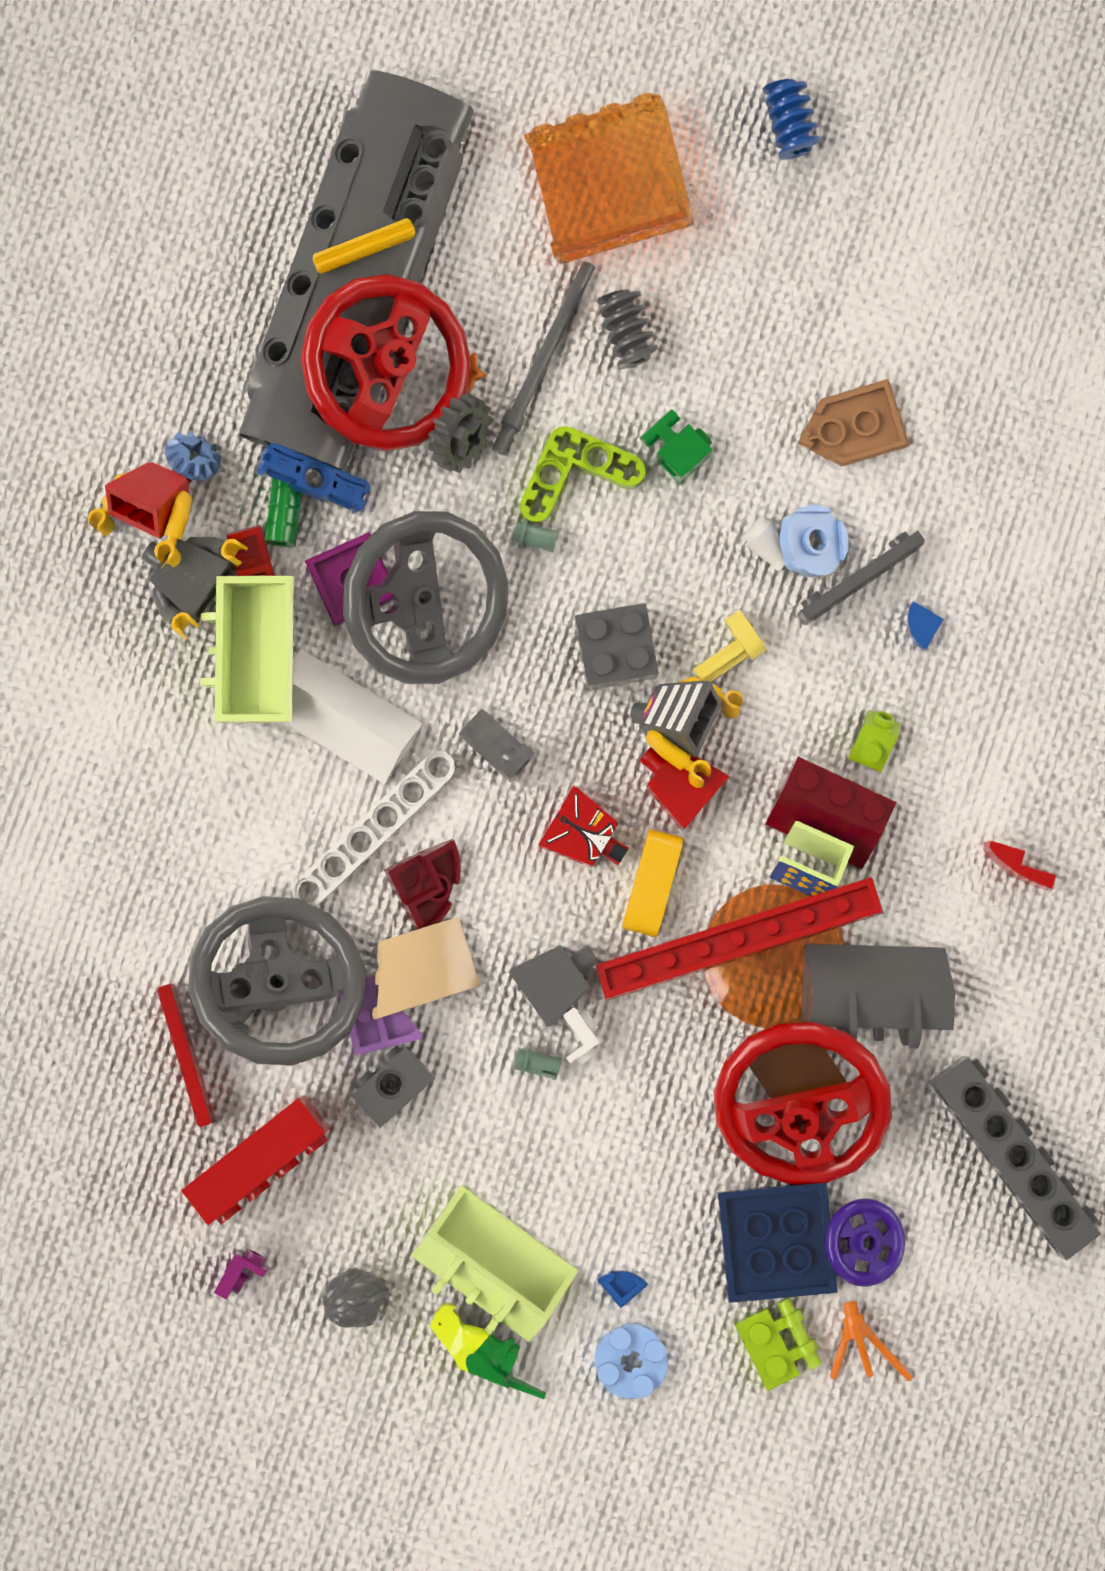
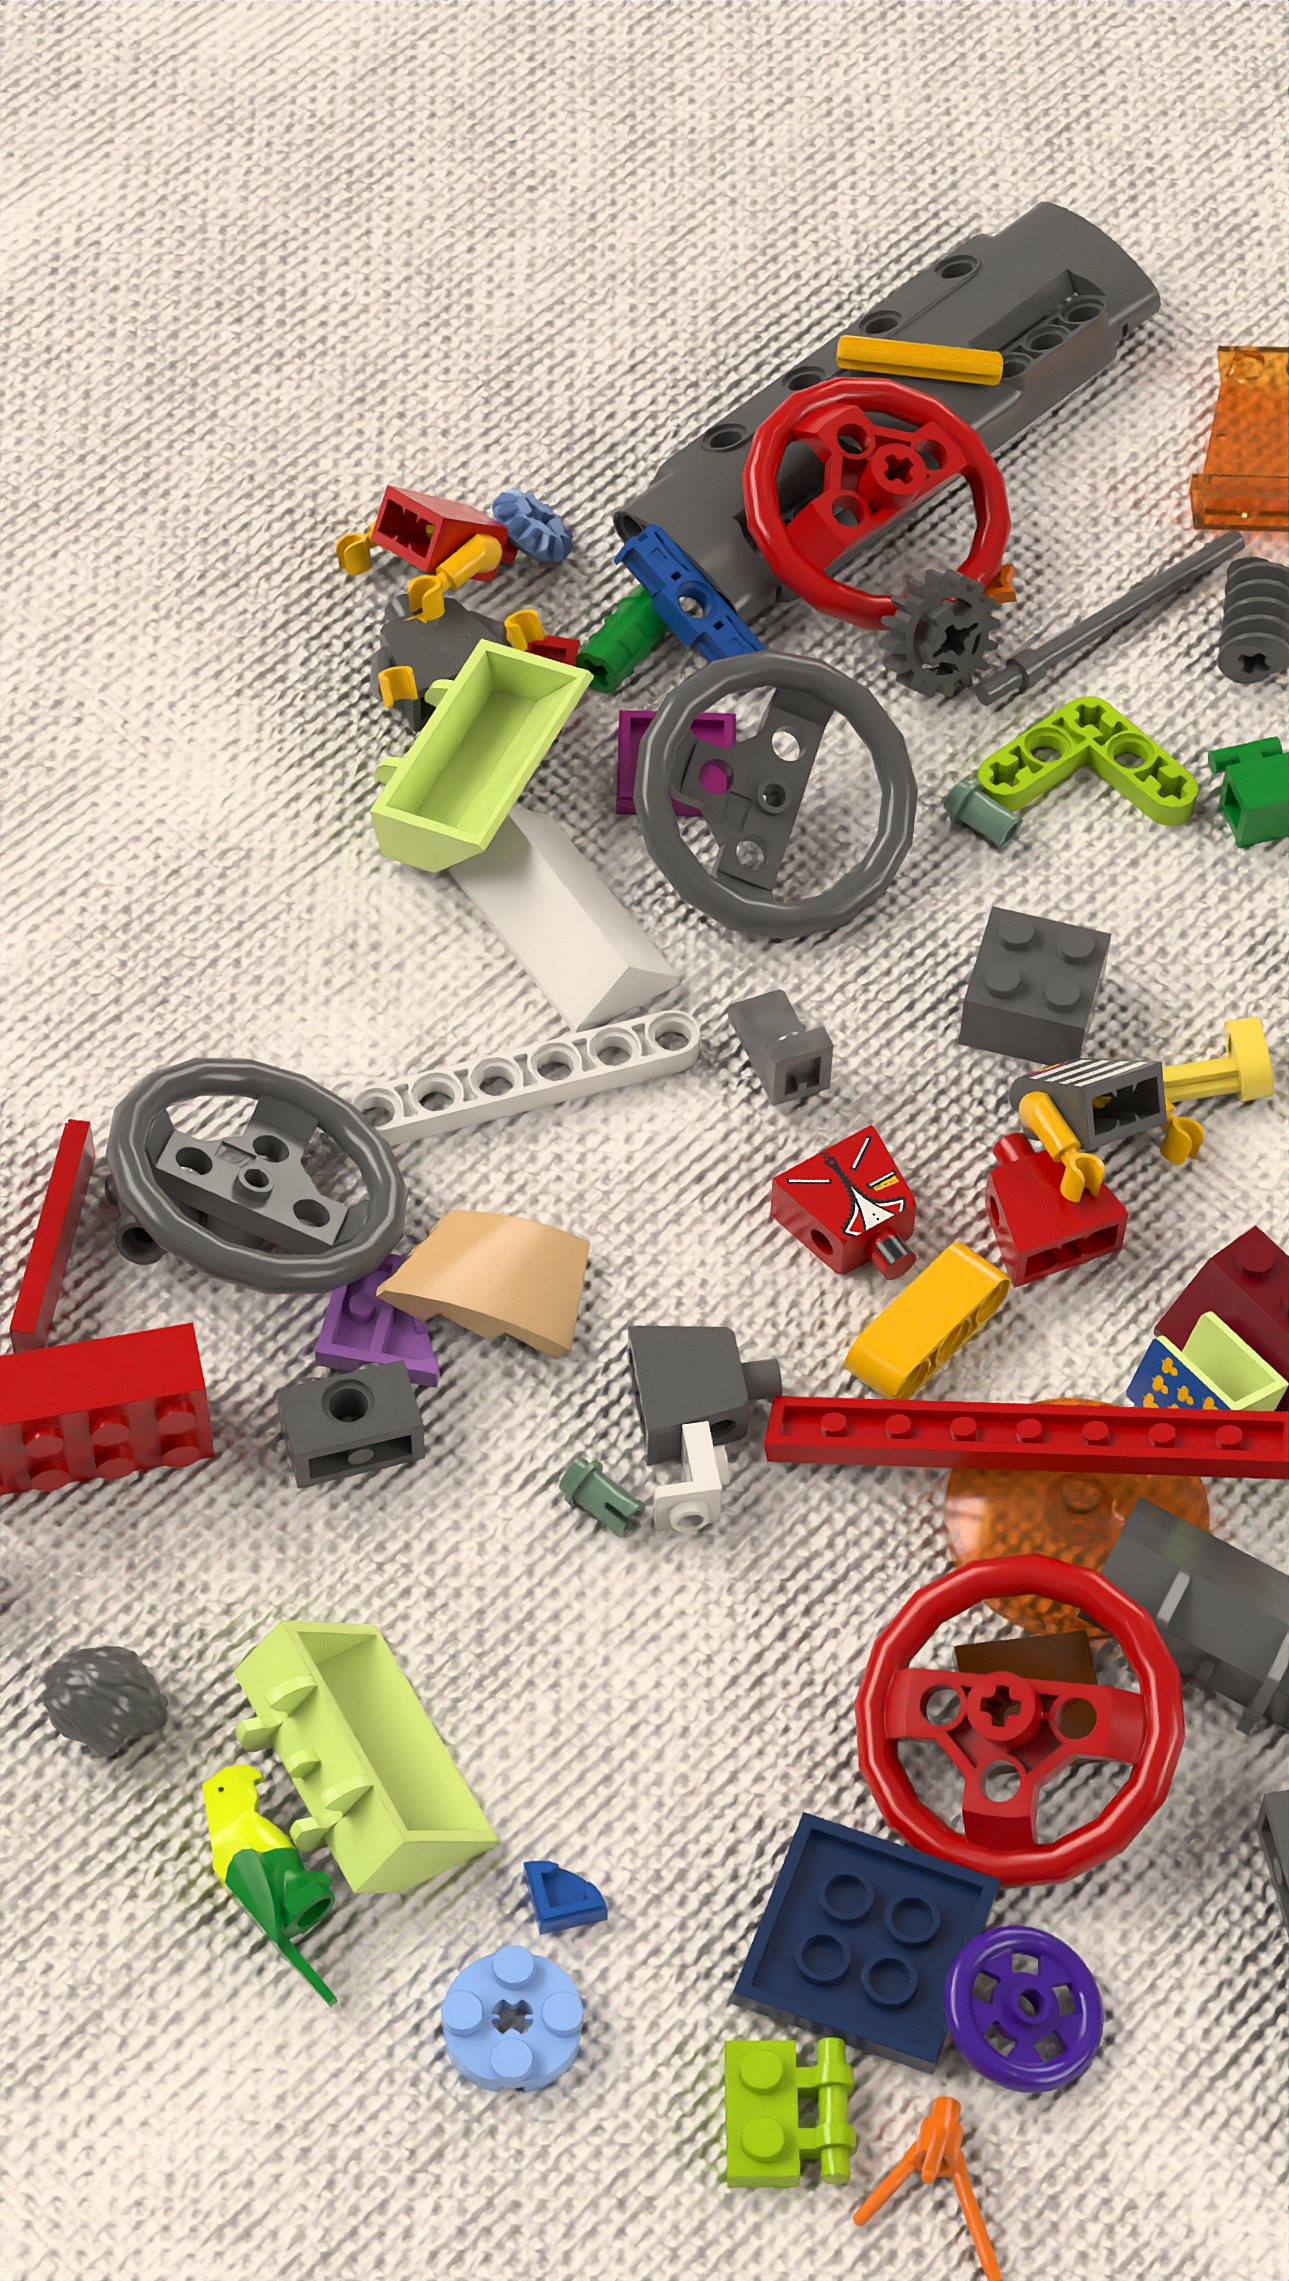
camera: 30 degrees right, 30 degrees down
(426, 882) = (569, 1175): dark red brick -> none

